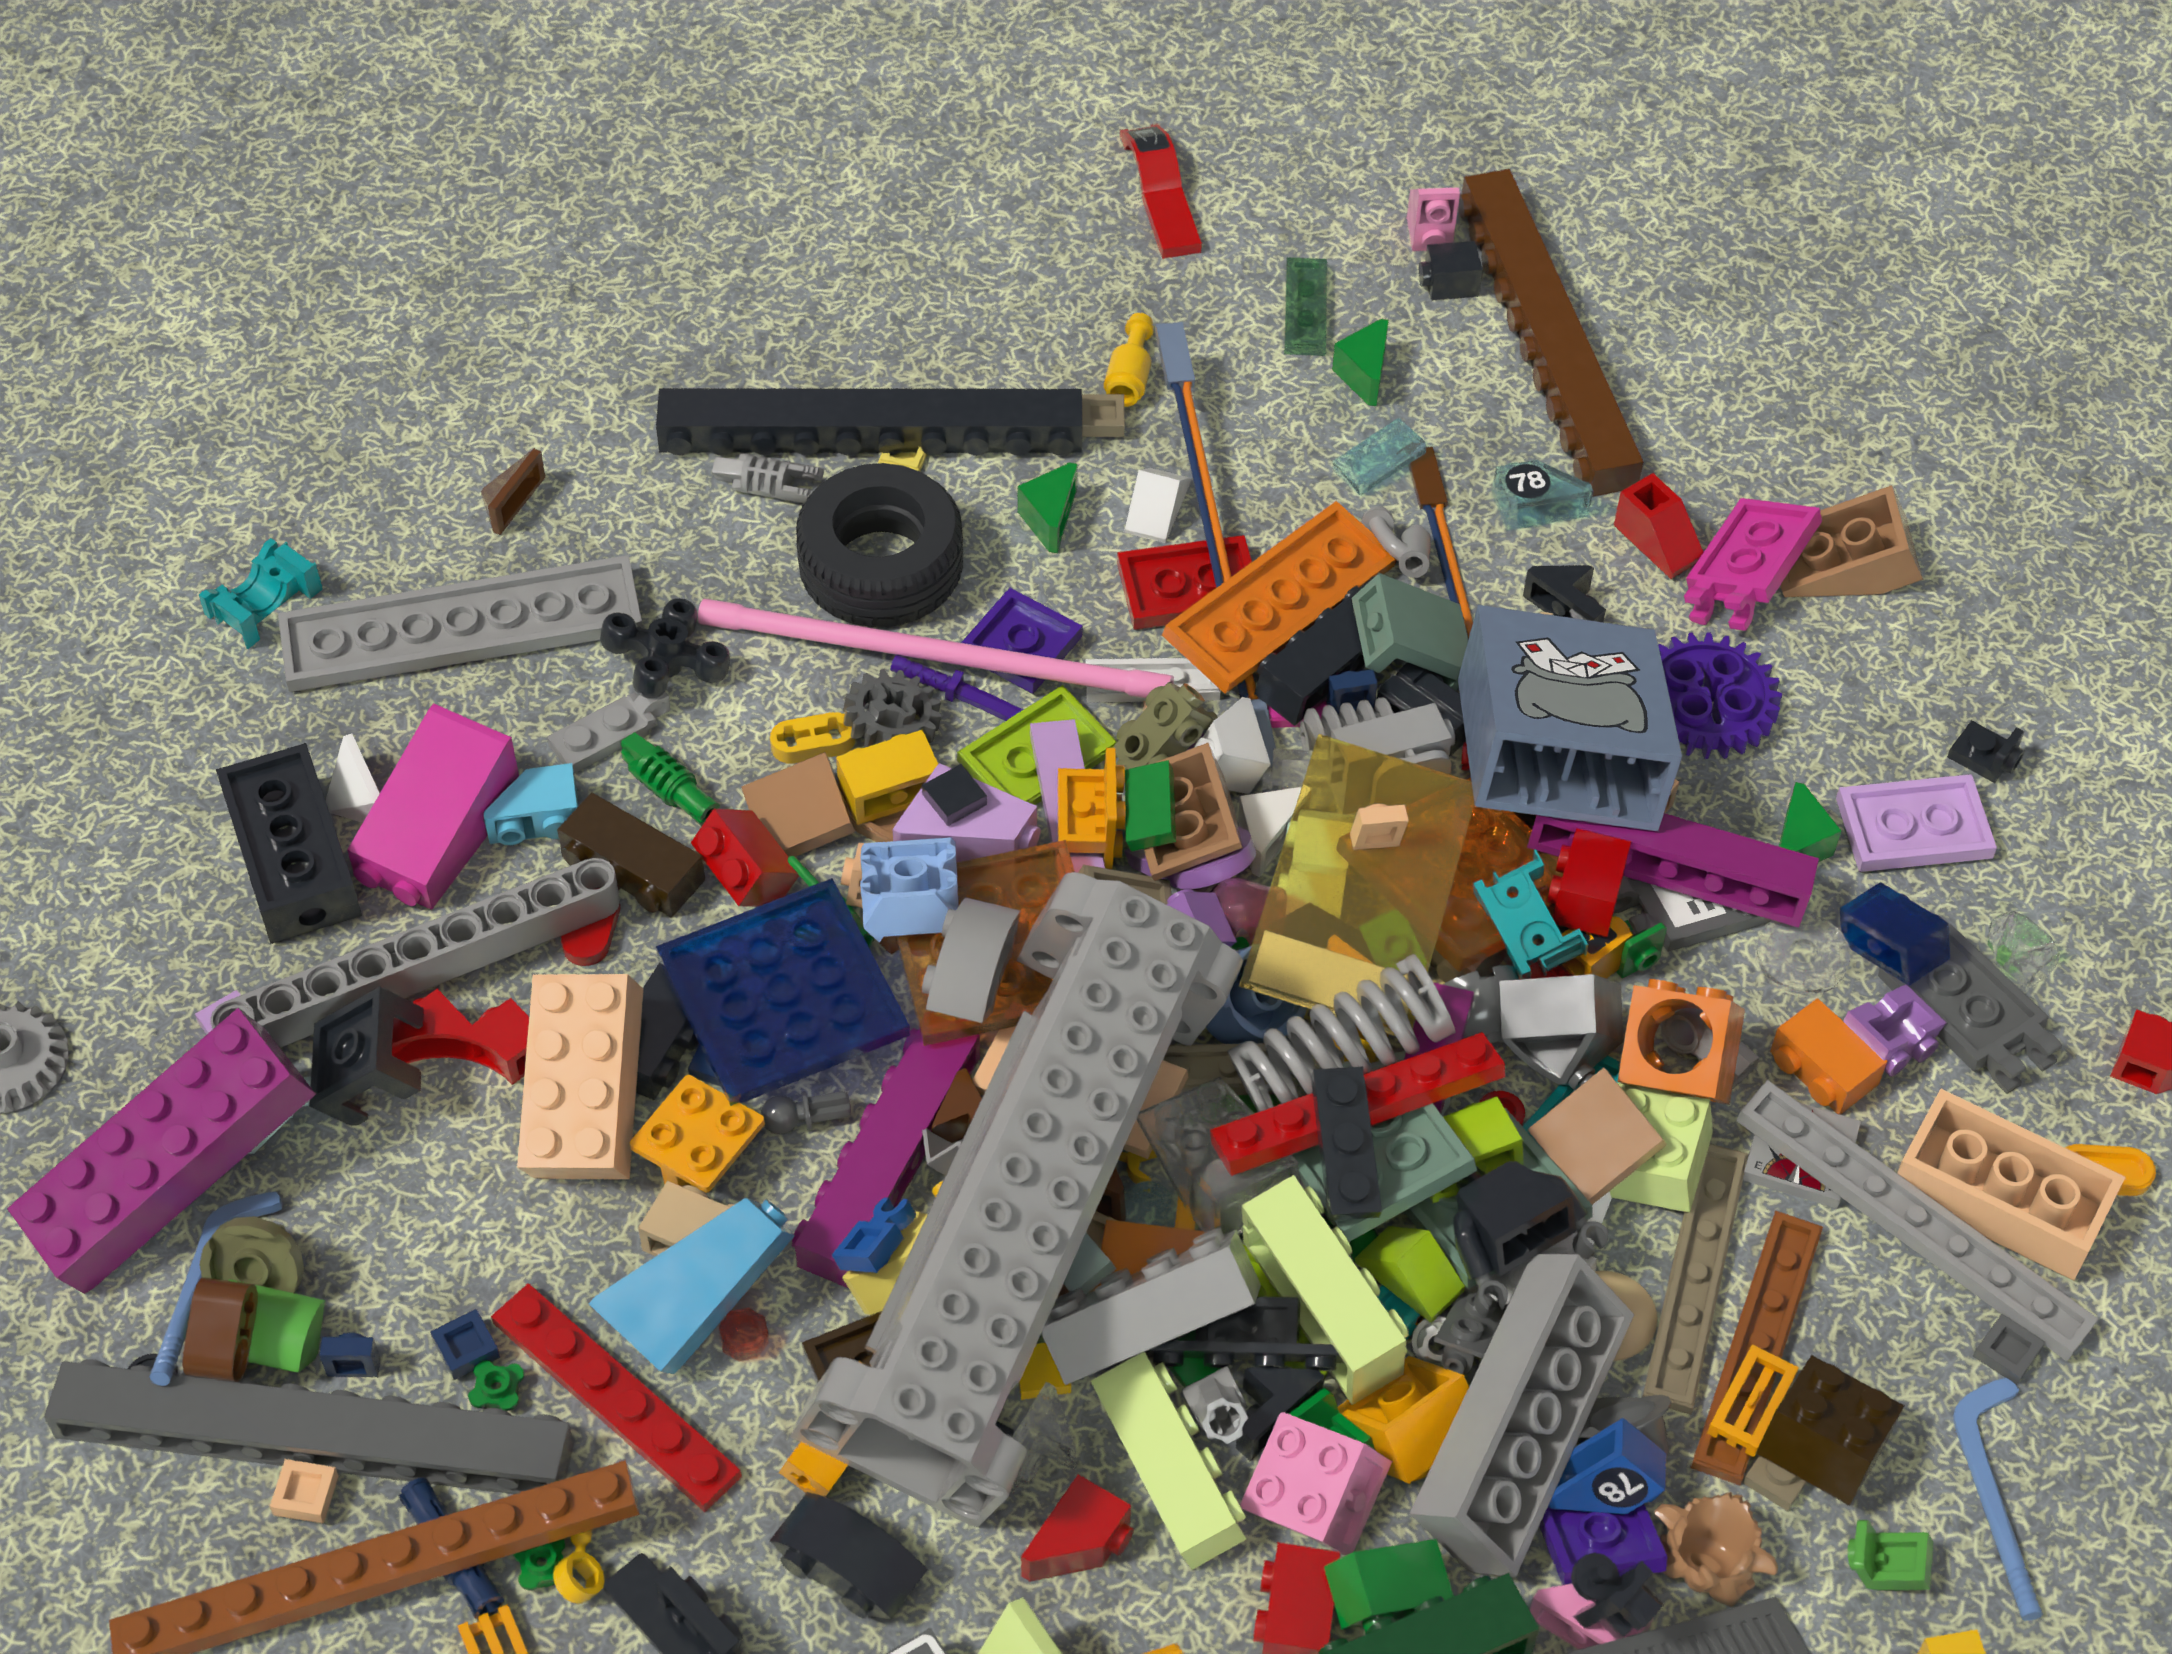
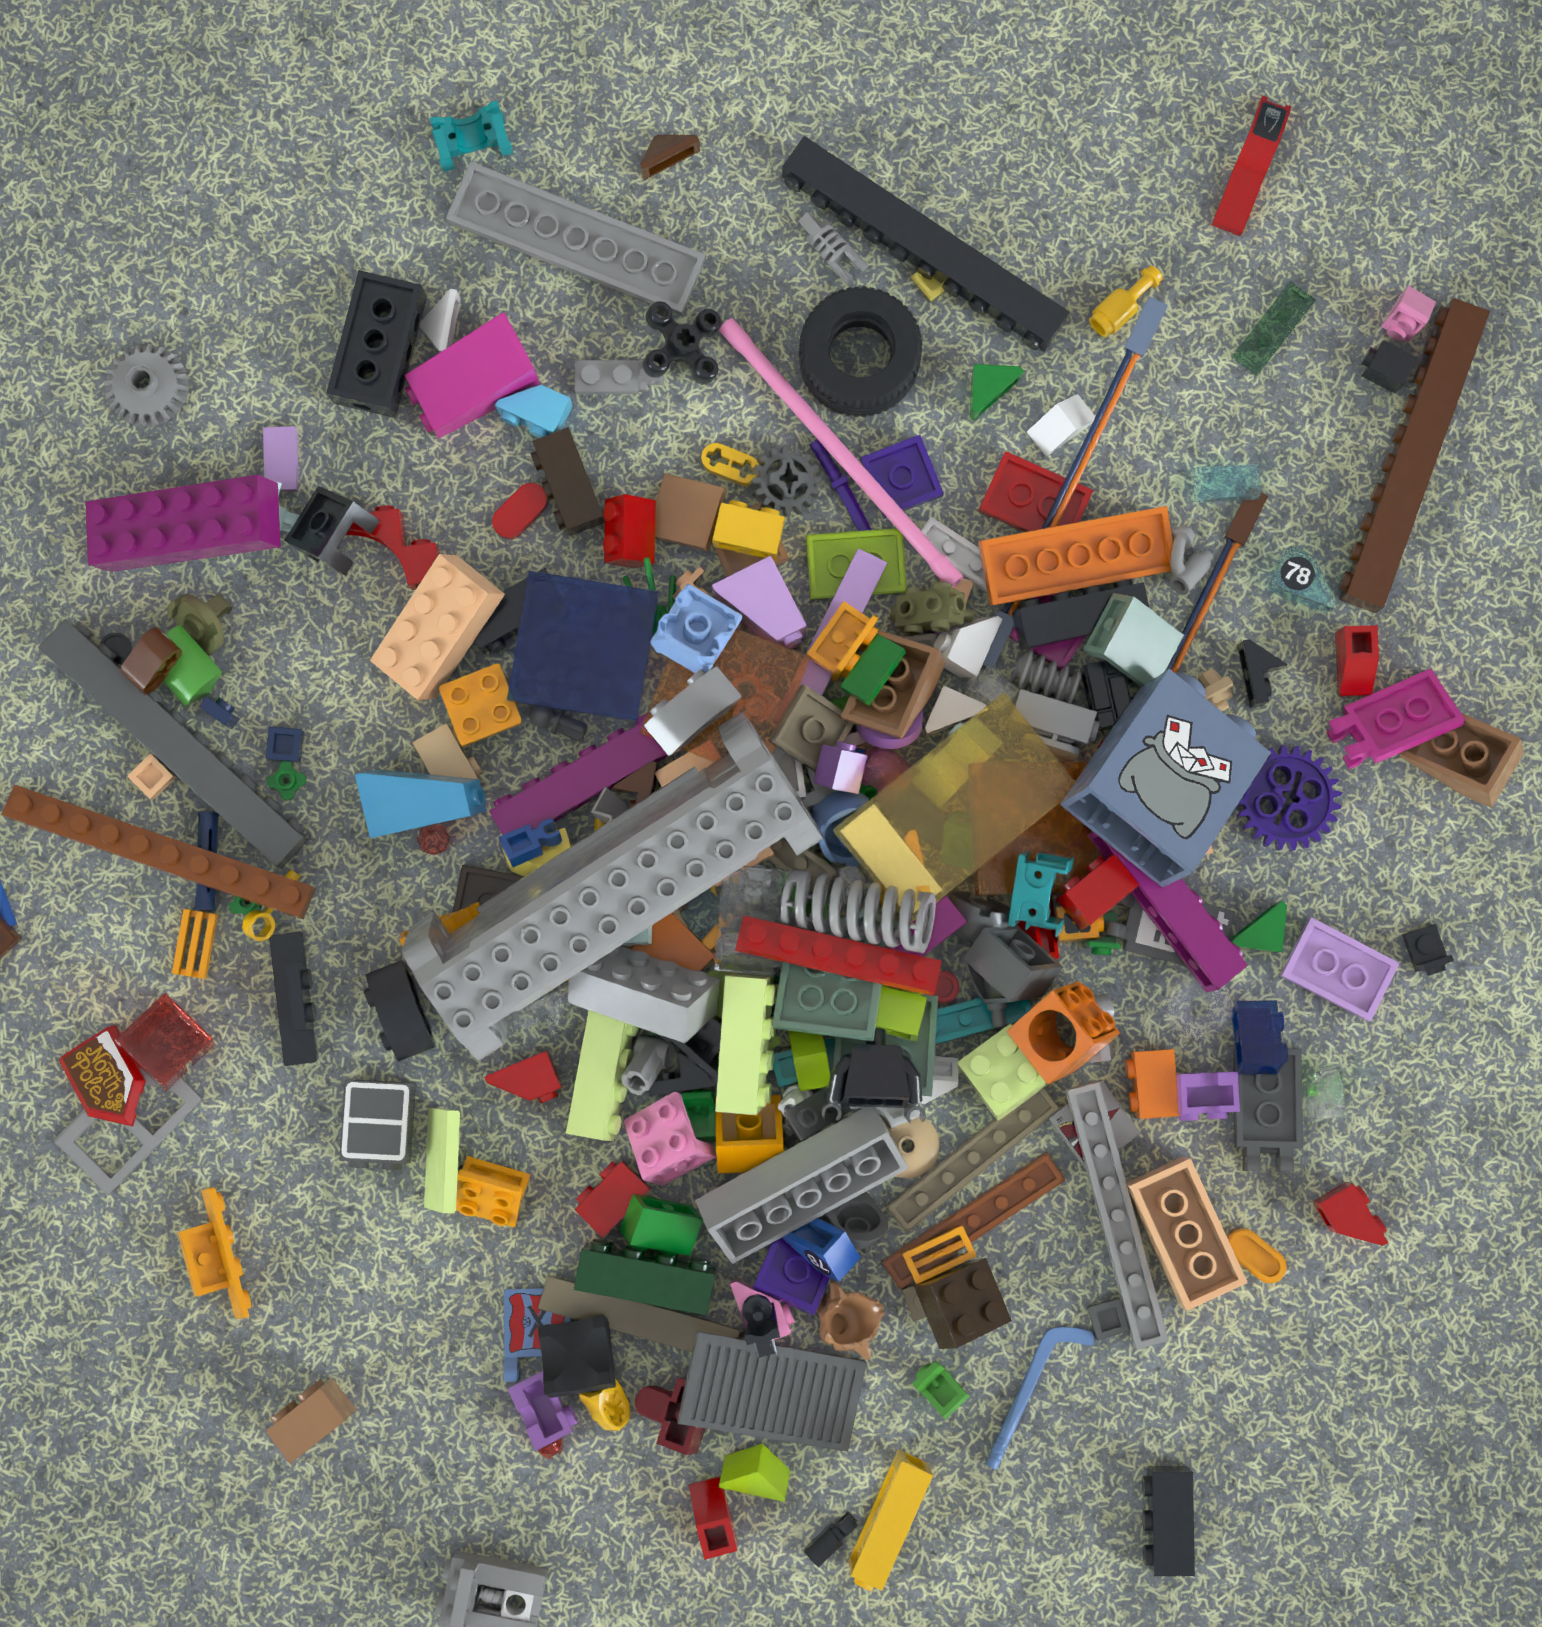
camera: 35 degrees right, 30 degrees up
(176, 1332) = (192, 583): medium blue piece -> none
(440, 946) = (388, 470): light grey beam -> none
(617, 1397) = (345, 828): red plate -> none
(666, 777) = (625, 440): green hinge -> none
(954, 794) = (761, 587): black tile -> none
(1103, 415) = (1075, 334): dark tan plate -> none
(1346, 1143) = (805, 982): black plate -> none
(1351, 688) = (1067, 654): dark blue plate -> none
(1360, 360) = (1272, 401): green slope -> none
(1379, 826) = (987, 783): light nougat plate -> none
(1597, 1136) = (968, 1055): medium nougat tile -> none

